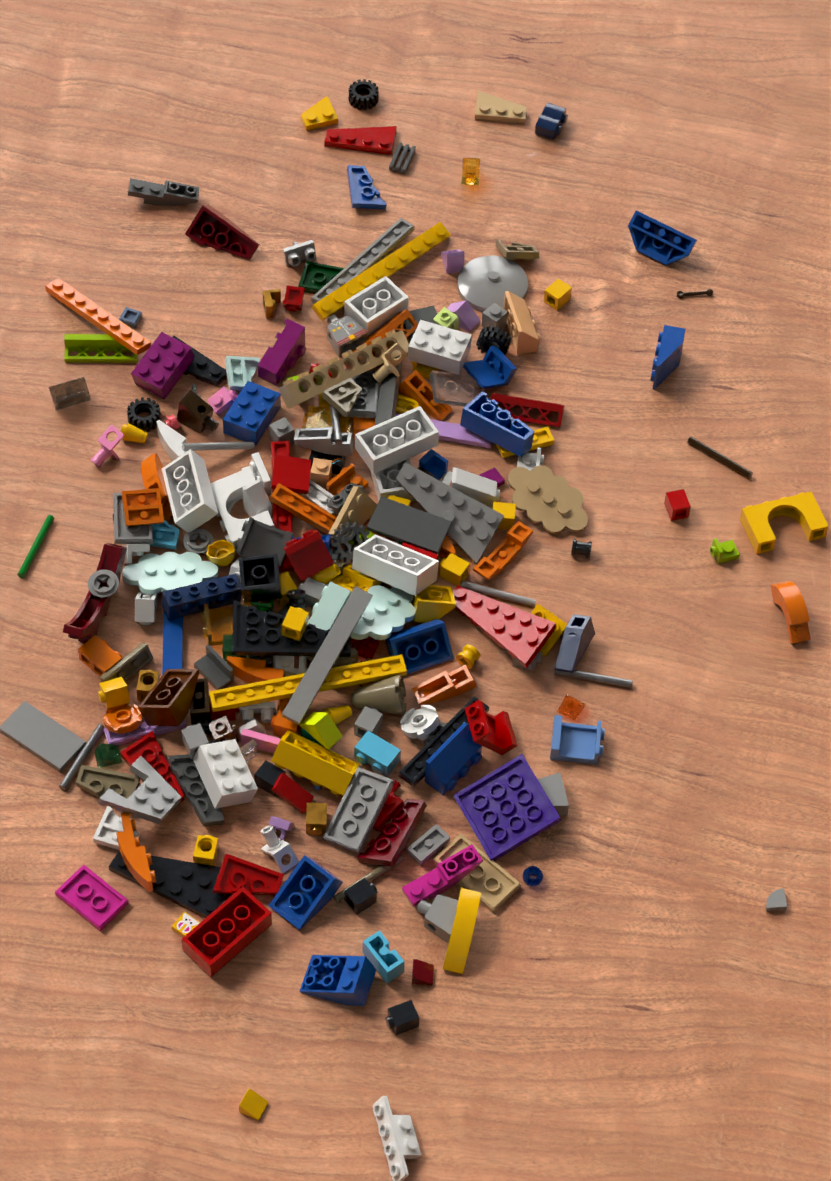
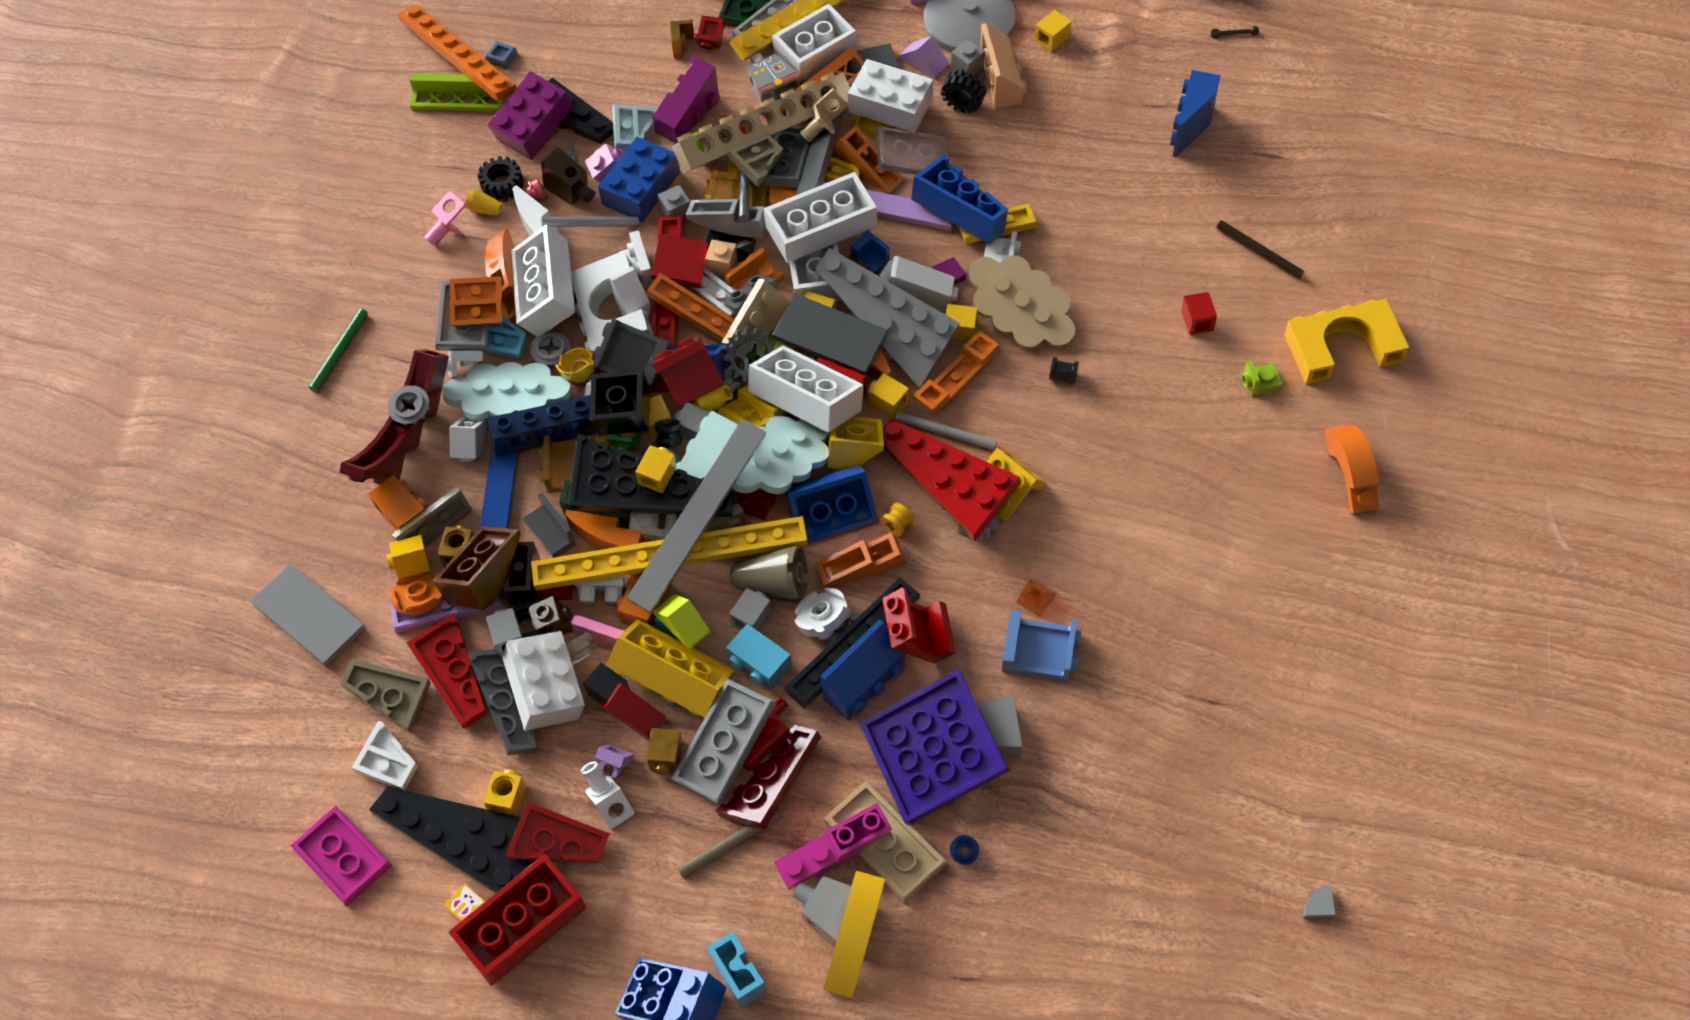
camera: 10 degrees right, 5 degrees up
(69, 393) = (407, 149): clear smoke brick -> none
(81, 757) = (356, 646): flat silver bar -> none
(107, 755) = (392, 644): clear green slope -> none
(135, 855) = (400, 794): orange slope -> none
(150, 801) = (433, 717): light grey wing -> none
(253, 726) = (593, 611): white tile -> none
(305, 892) = (637, 861): blue slope -> none
(339, 714) = (708, 597): yellow cone -> none
(360, 896) = (715, 870): black brick -> none
(422, 973) = (793, 995): dark red slope -> none
(428, 844) = (818, 795): light grey plate -> none
(447, 319) = (905, 59): yellowish green bracket -> none
(493, 370) = (960, 129): blue bracket -> none
(532, 404) = (1009, 172): red fence -> none
(574, 643) = (1045, 504): dark blue slope -> none
(596, 678) = (1070, 554): flat silver bar -> none

